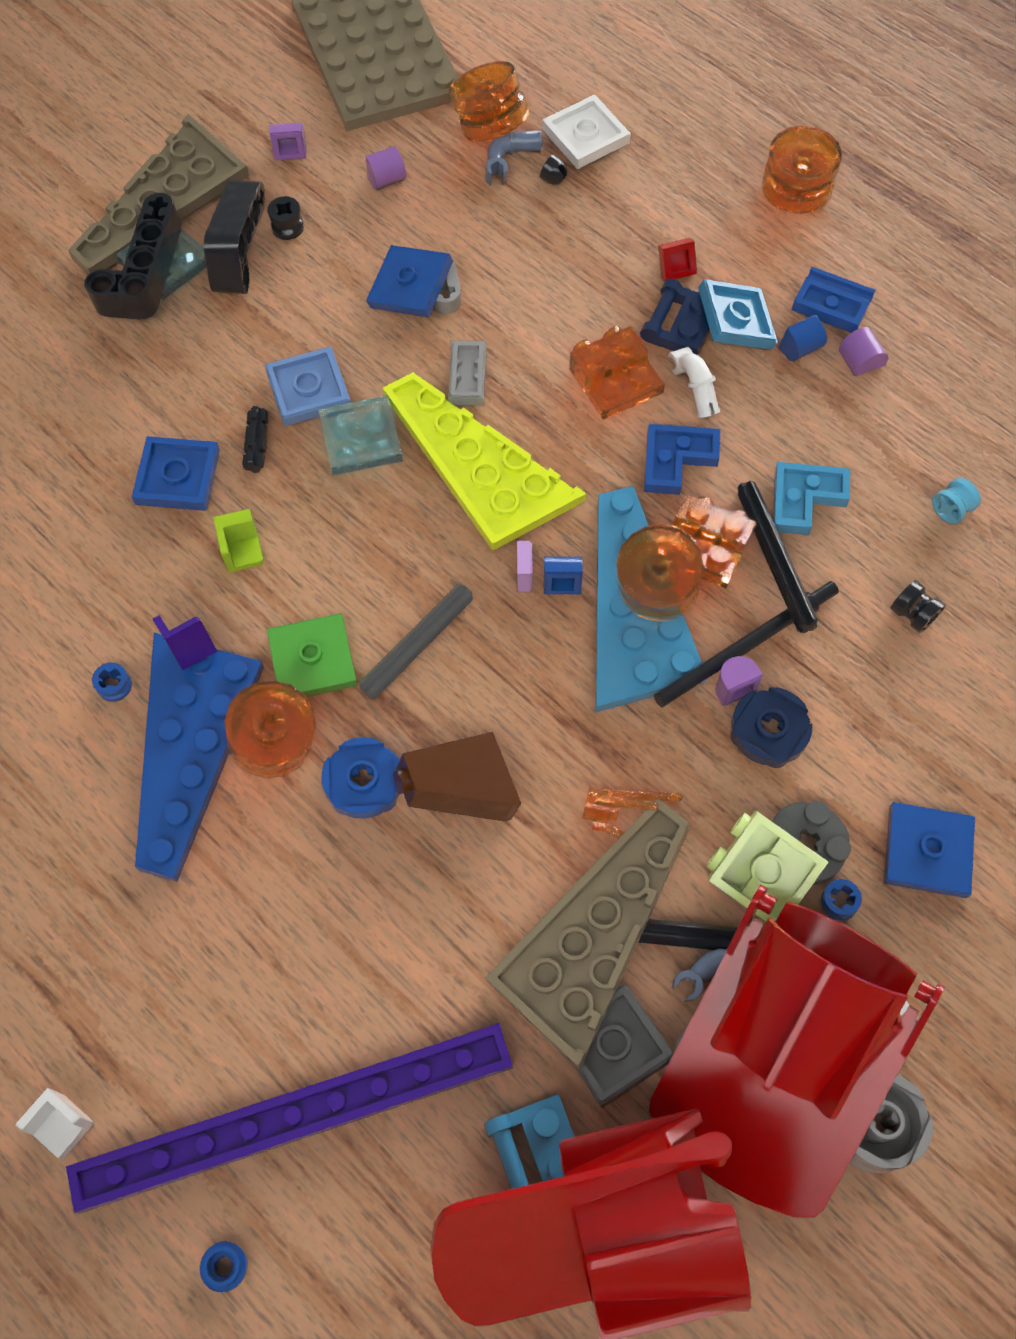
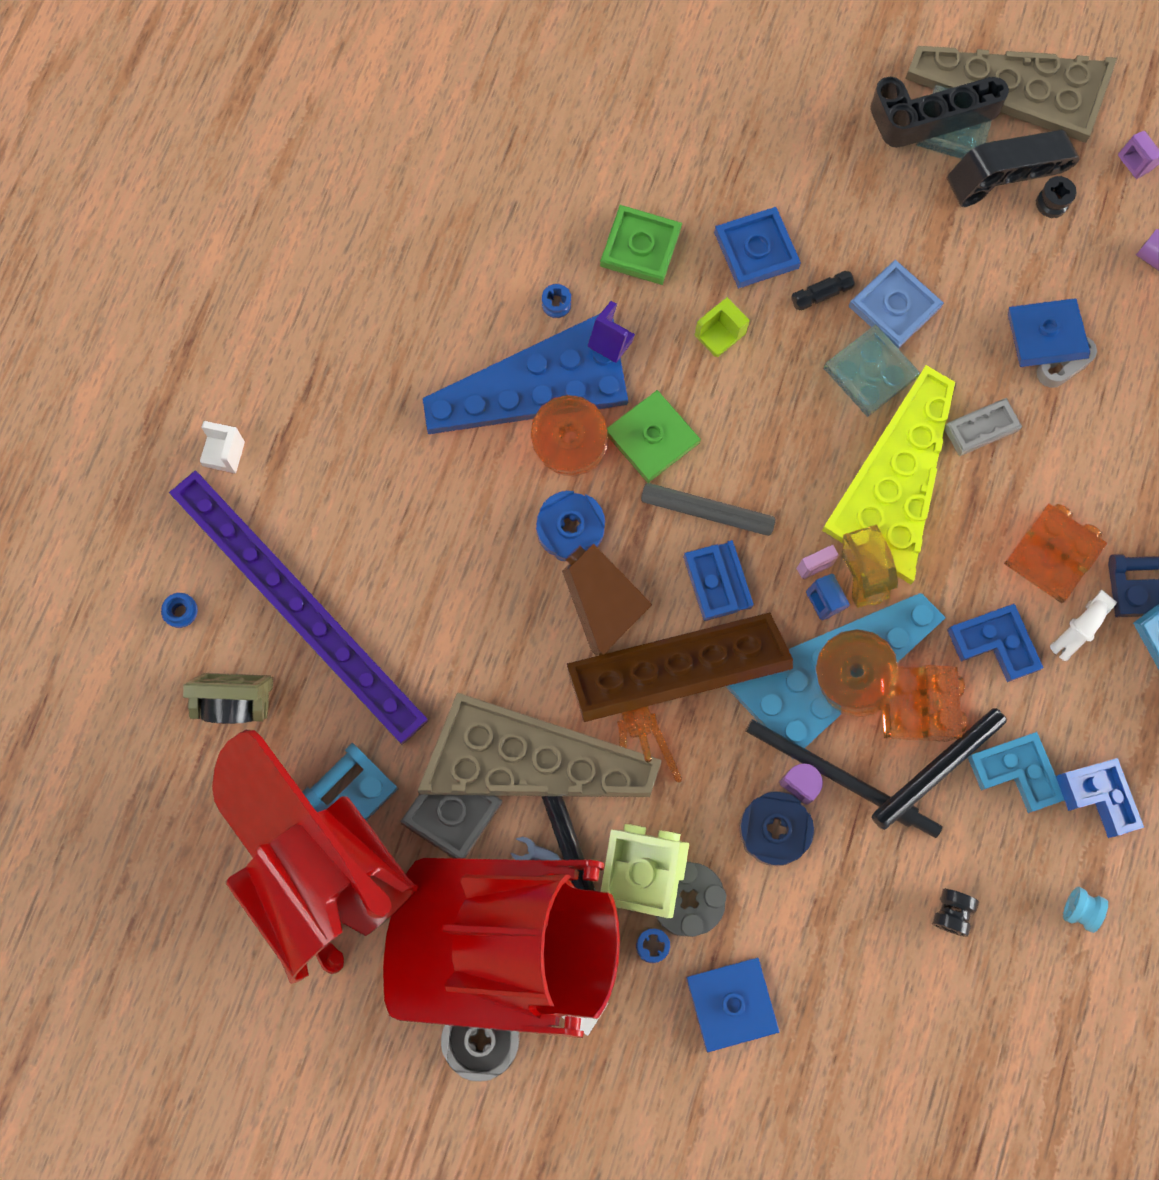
camera: 60 degrees right, 10 degrees up
(104, 574) = (640, 244): none -> bright green plate
(364, 1247) = (228, 697): none -> olive piece
(495, 664) = (718, 580): none -> blue plate
(555, 515) = (870, 565): none -> clear yellow brick
(567, 742) = (678, 666): none -> reddish brown plate
(852, 435) = (1110, 792): none -> plate

